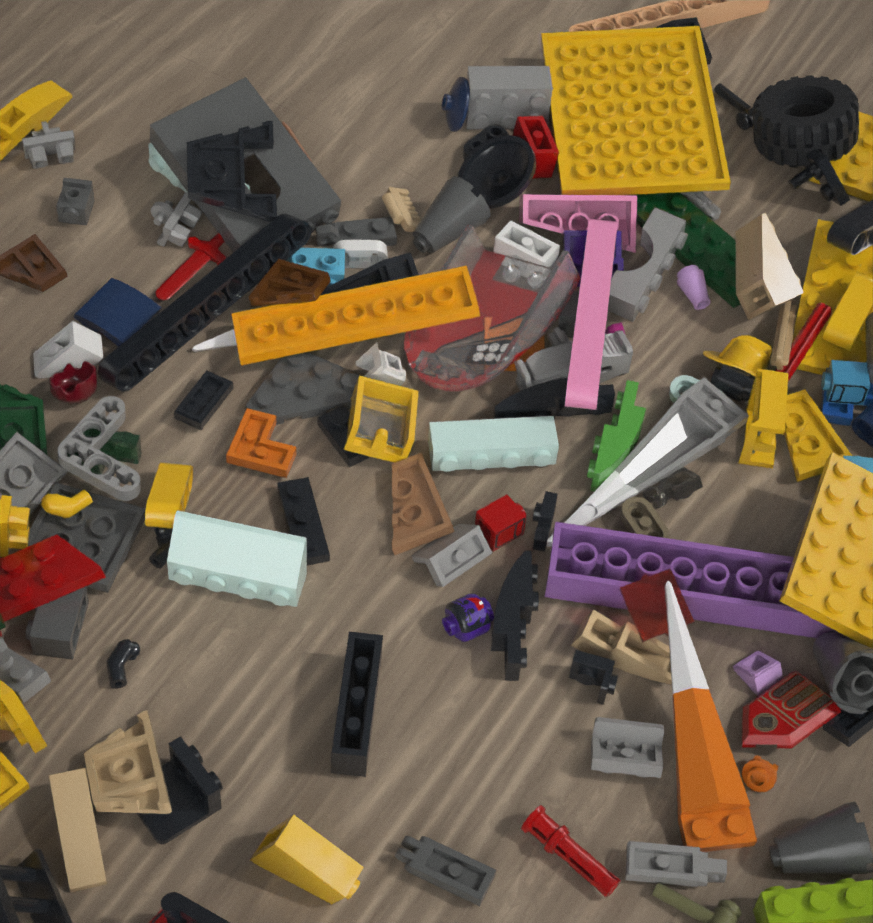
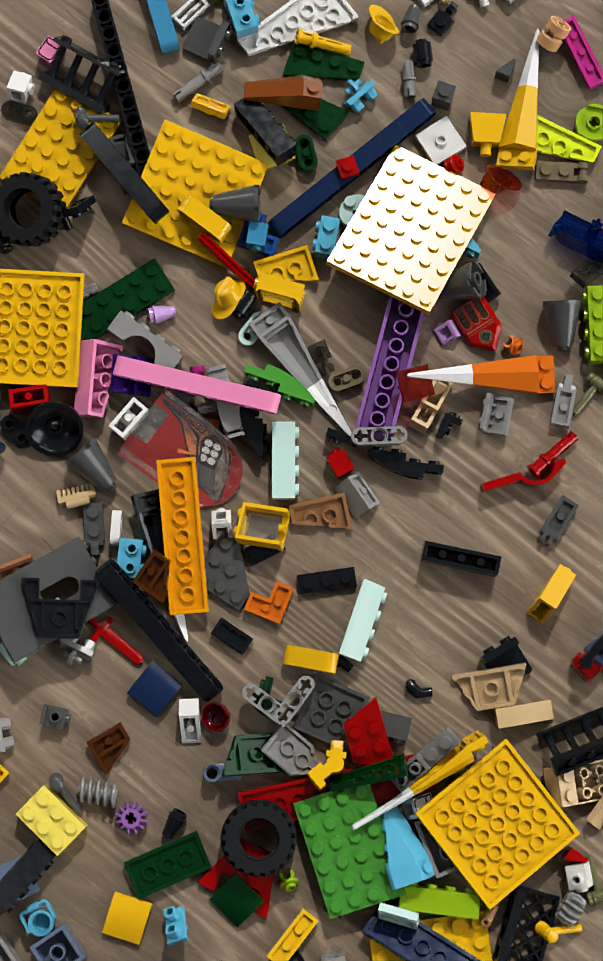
camera: 80 degrees left, 30 degrees up
(66, 506) = (316, 721): yellow arm -> none
(468, 617) = (404, 490): dark purple head -> none
(542, 856) = (518, 477): none -> red piece
(550, 564) = (393, 429): none -> light grey beam
(763, 269) = (167, 269): tan slope -> none
(784, 335) = (212, 265): tan axle -> none

